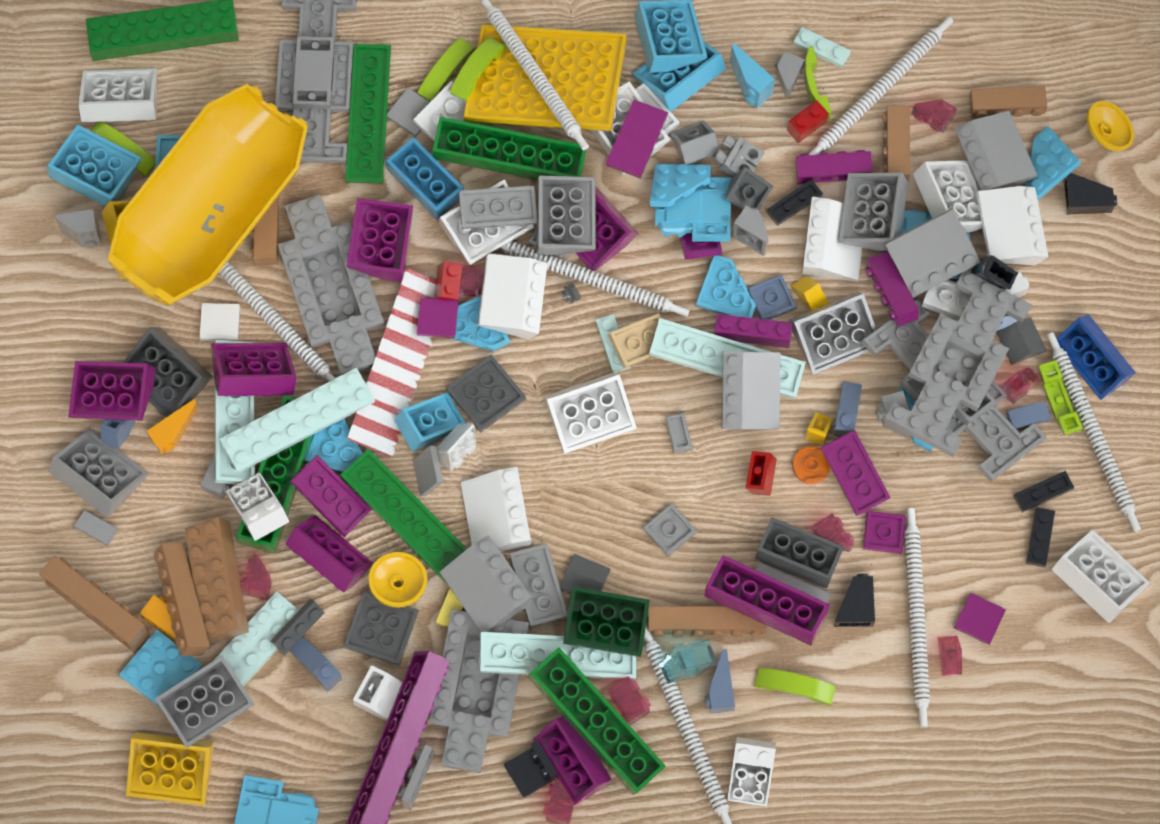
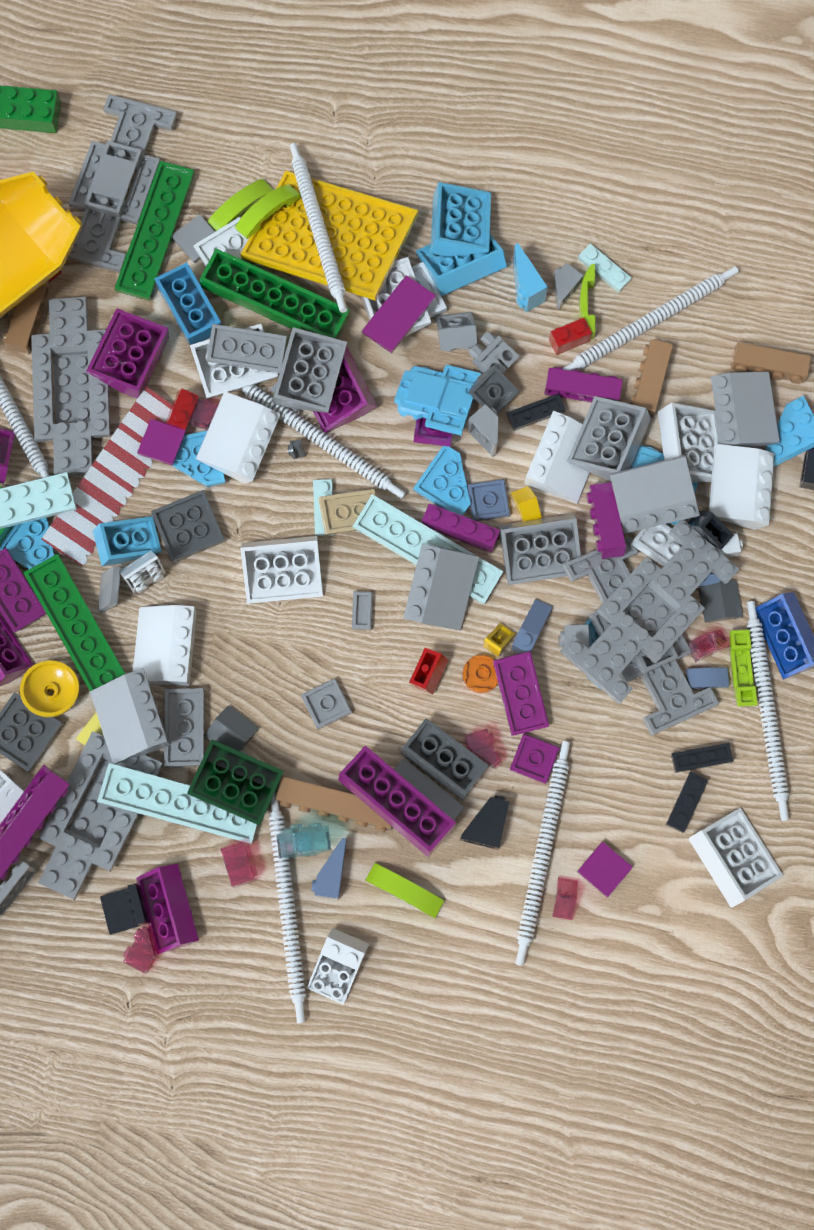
camera: 15 degrees right, 5 degrees up
(596, 721) = (196, 880): green brick -> none
(677, 181) = (428, 365): medium azure plate -> none
(935, 113) = (696, 357): clear pink slope -> none

